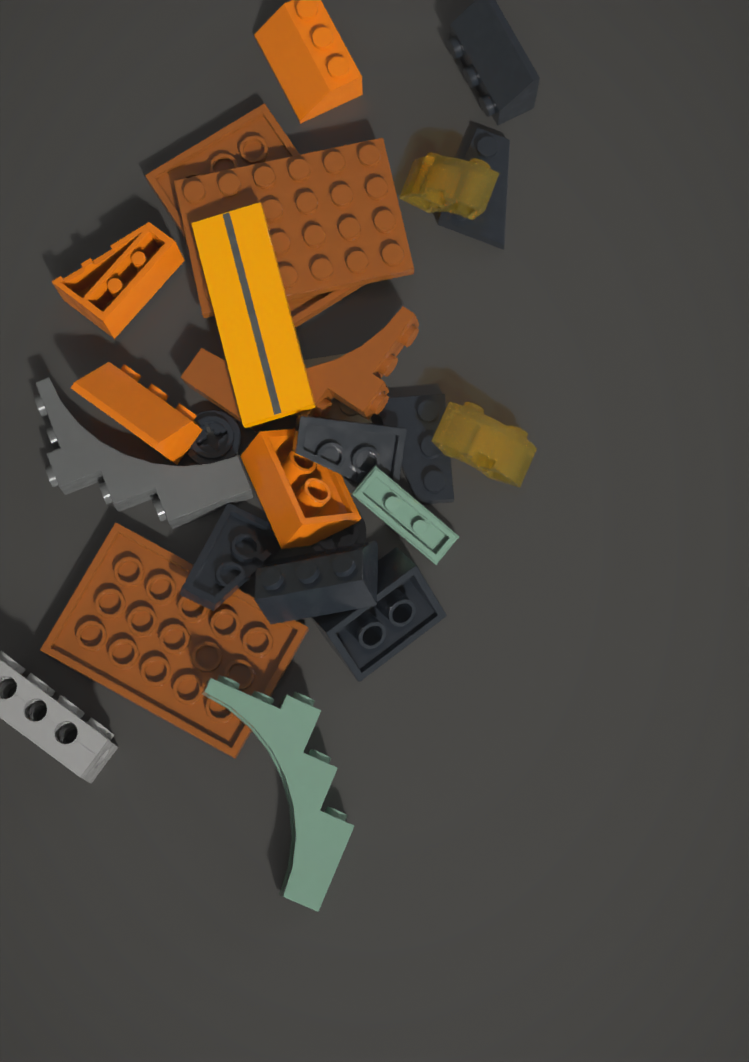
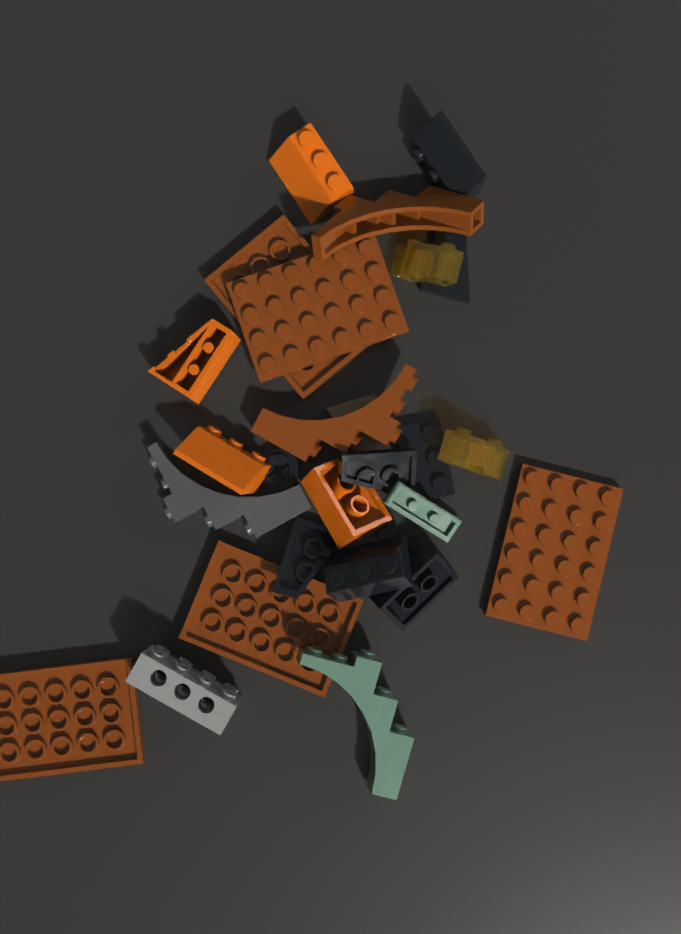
camera: 10 degrees left, 10 degrees up
(253, 315) = (297, 380): light orange tile -> none
(412, 114) = (395, 212): none -> dark orange arch
(584, 596) = (553, 552): none -> dark orange plate

